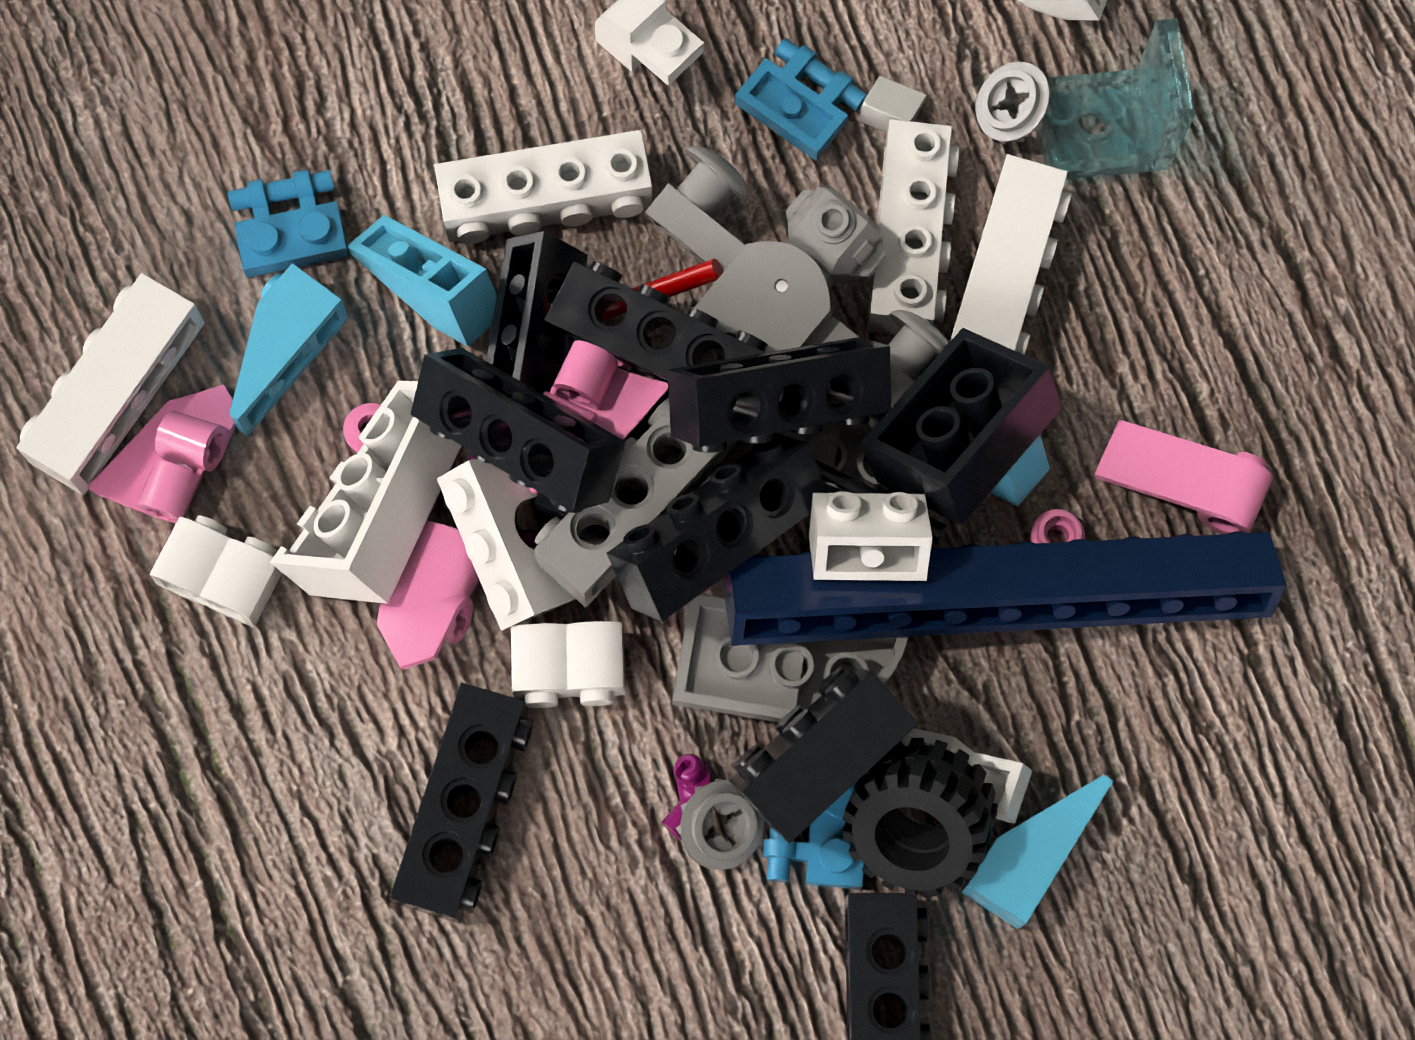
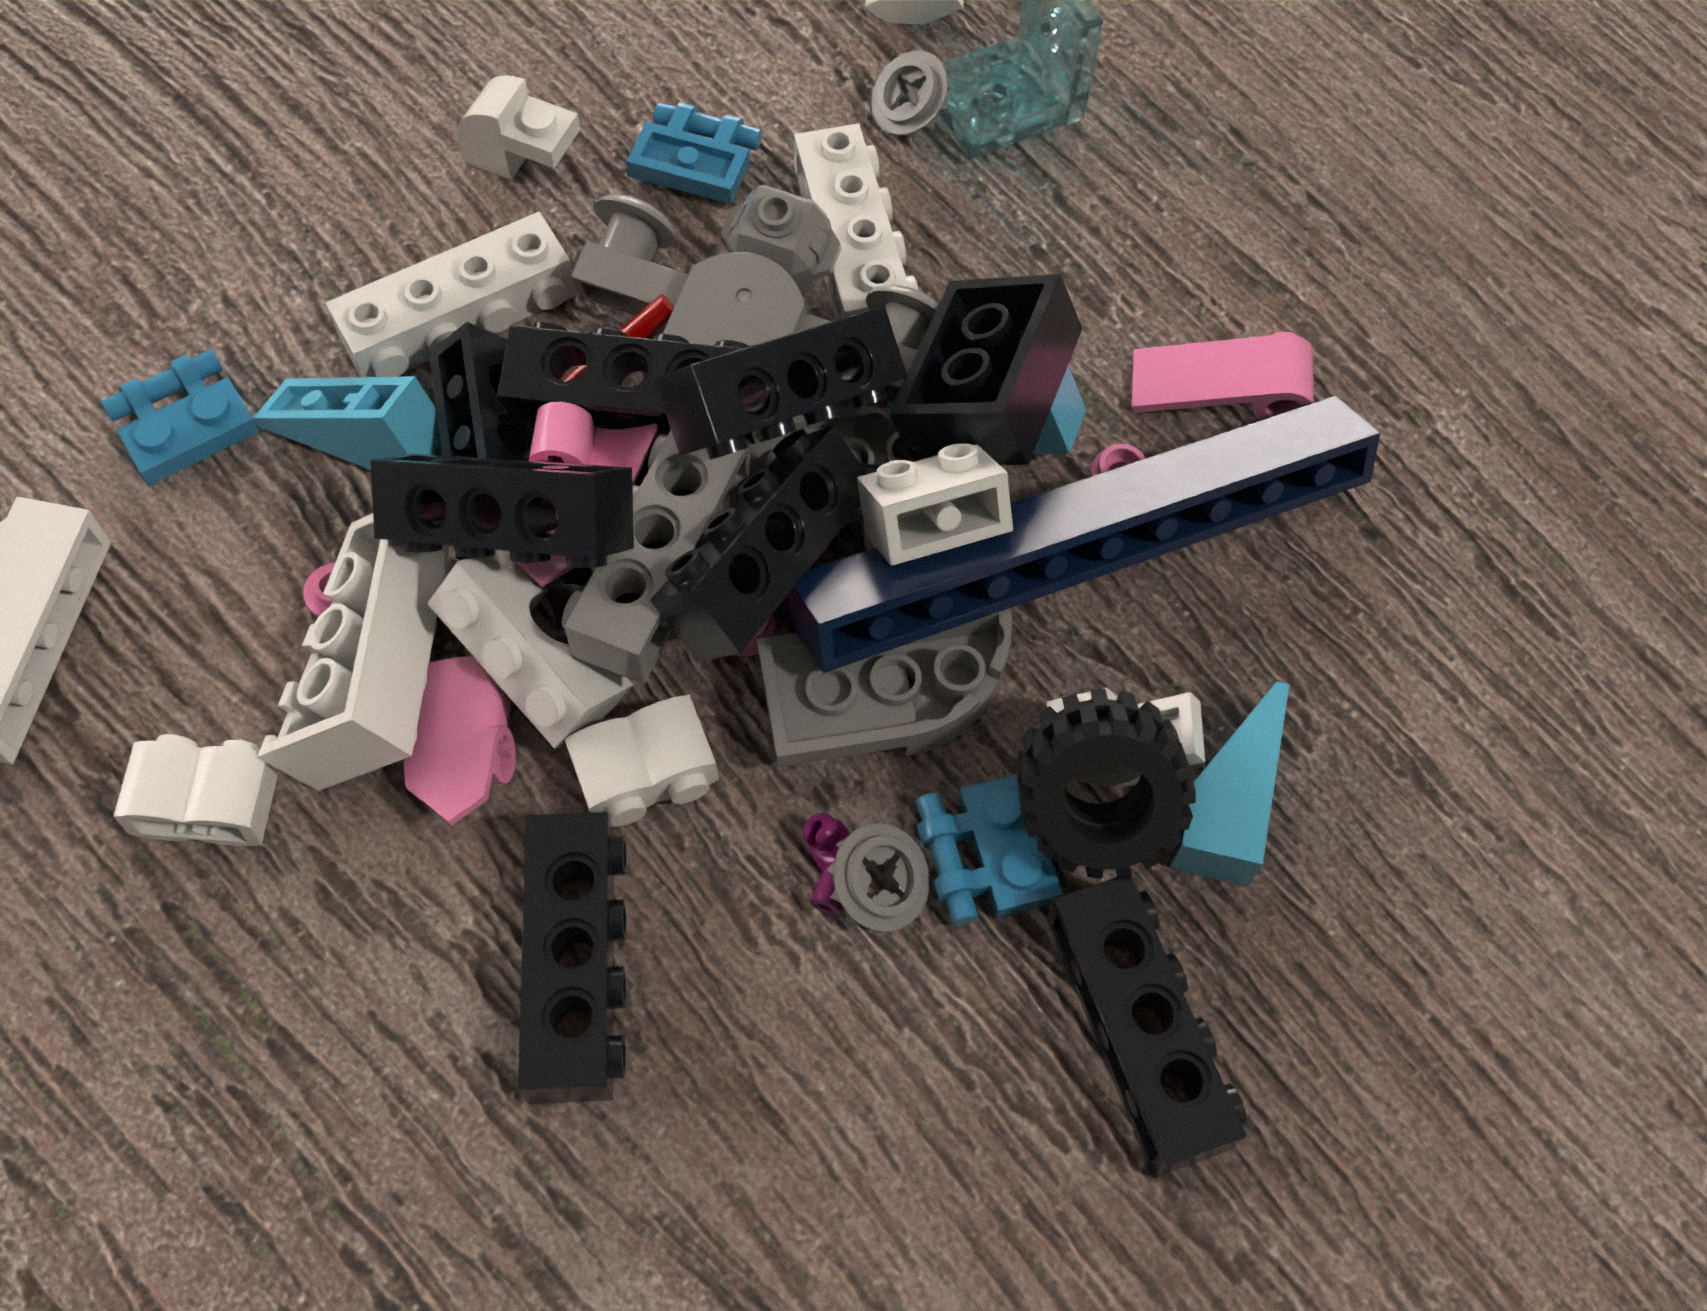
camera: 20 degrees left, 10 degrees down
(170, 455) = (106, 691): bright pink panel -> none
(286, 335) = (209, 521): medium azure slope -> none
(821, 750) = (969, 743): black brick -> none
(890, 101) = (778, 135): white slope -> none
(1011, 252) = (964, 207): white brick -> none

